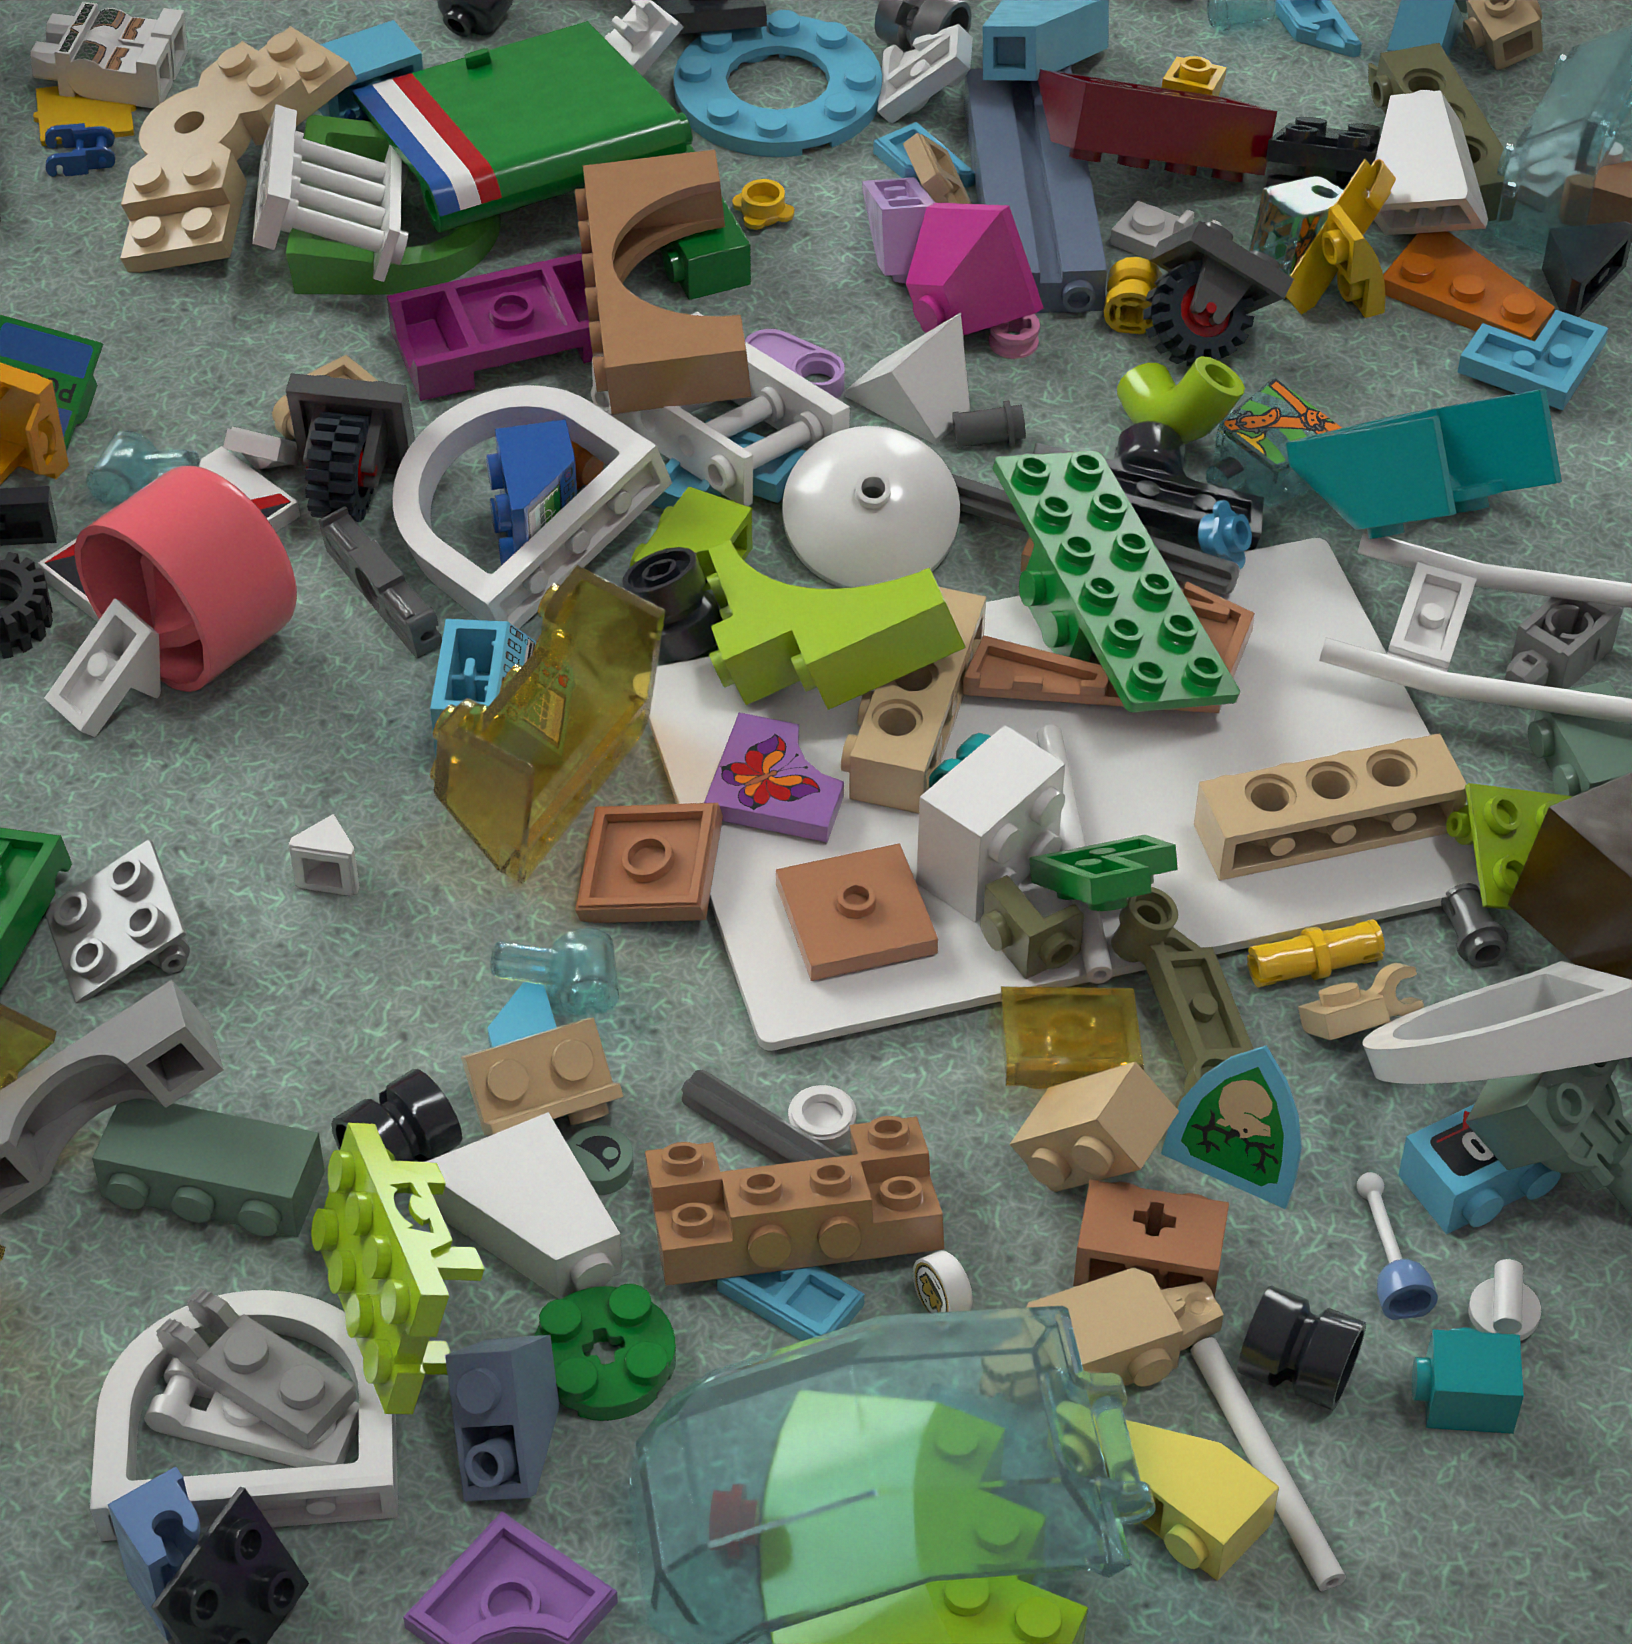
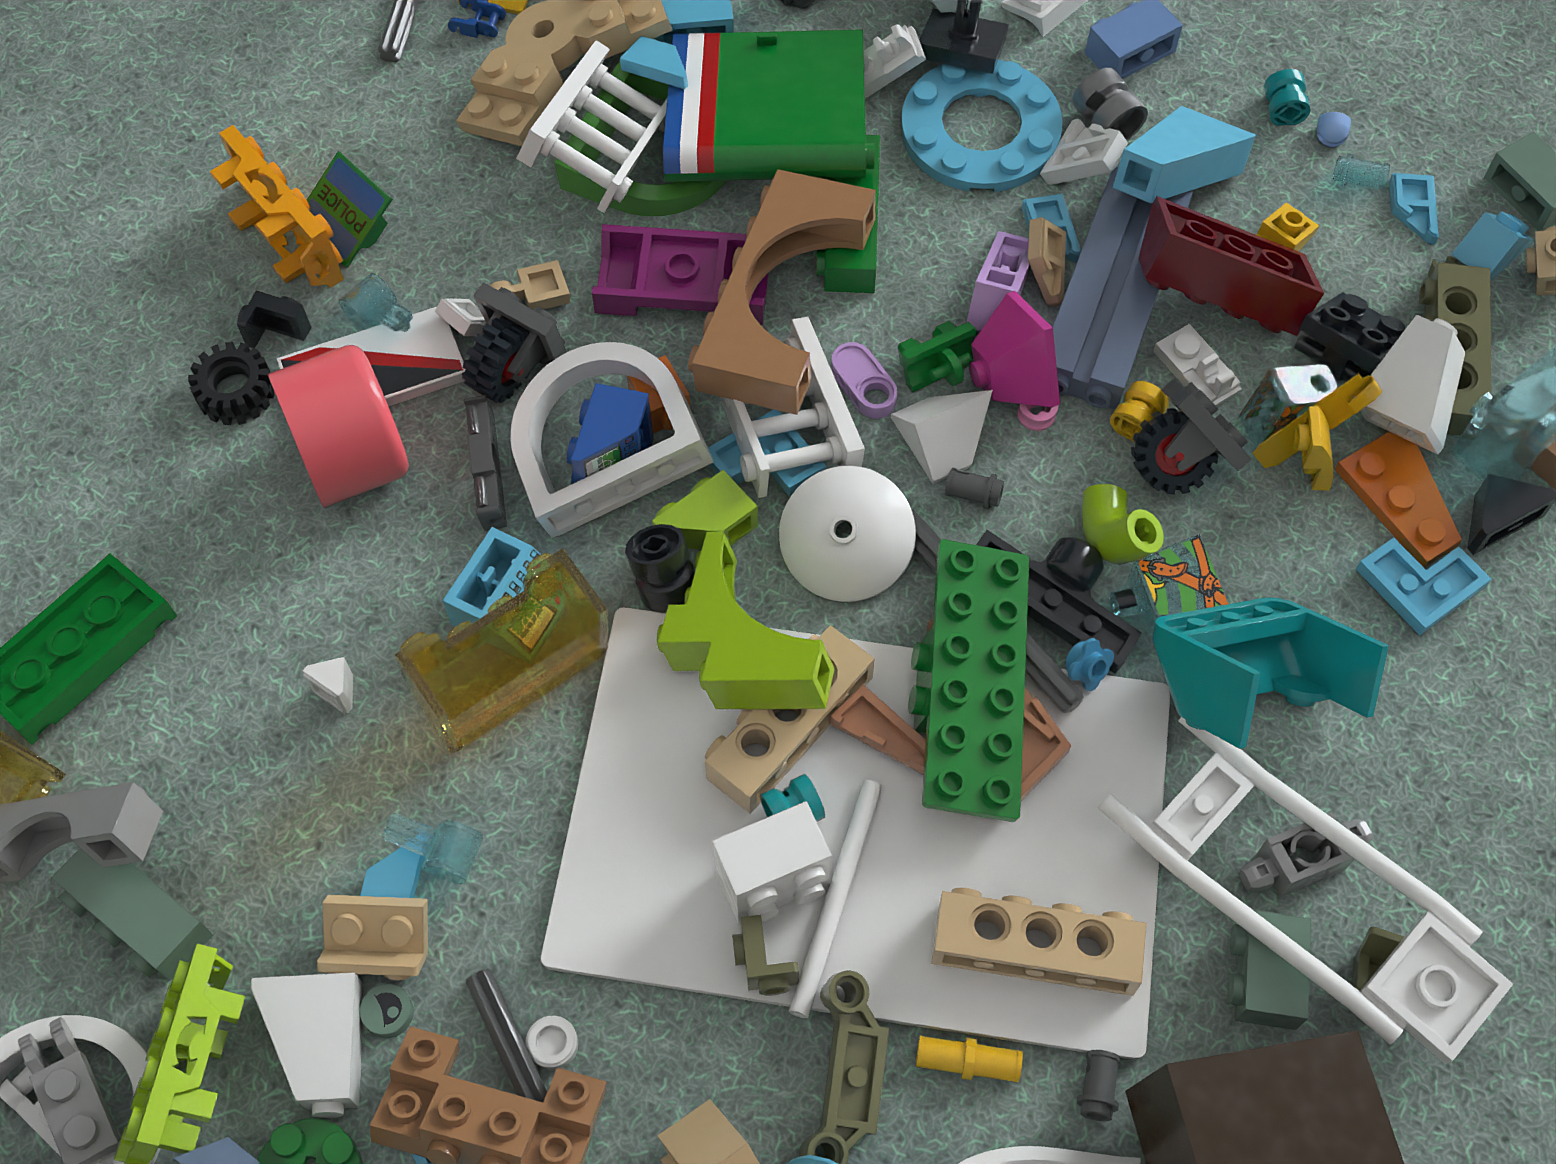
camera: 25 degrees right, 15 degrees up
(113, 658) = (266, 469): white slope -> none
(118, 923) = (180, 679): light grey hinge -> none
(359, 114) = (655, 61): none -> medium azure tile
(411, 1119) = (250, 937): black wheel -> none
(649, 863) = (542, 777): nougat plate -> none
(763, 204) = (914, 219): yellow plate -> none
(771, 784) = (653, 745): medium lavender tile -> none
(856, 911) = (656, 884): nougat plate -> none
(871, 314) = (939, 357): none -> green hips
(1066, 1033) = (749, 1060): clear yellow plate -> none
(1105, 871) = (826, 934): green plate -> none
(1347, 1009) = (967, 1127): tan plate -> none
(1503, 830) = (1162, 1030): lime hinge -> none

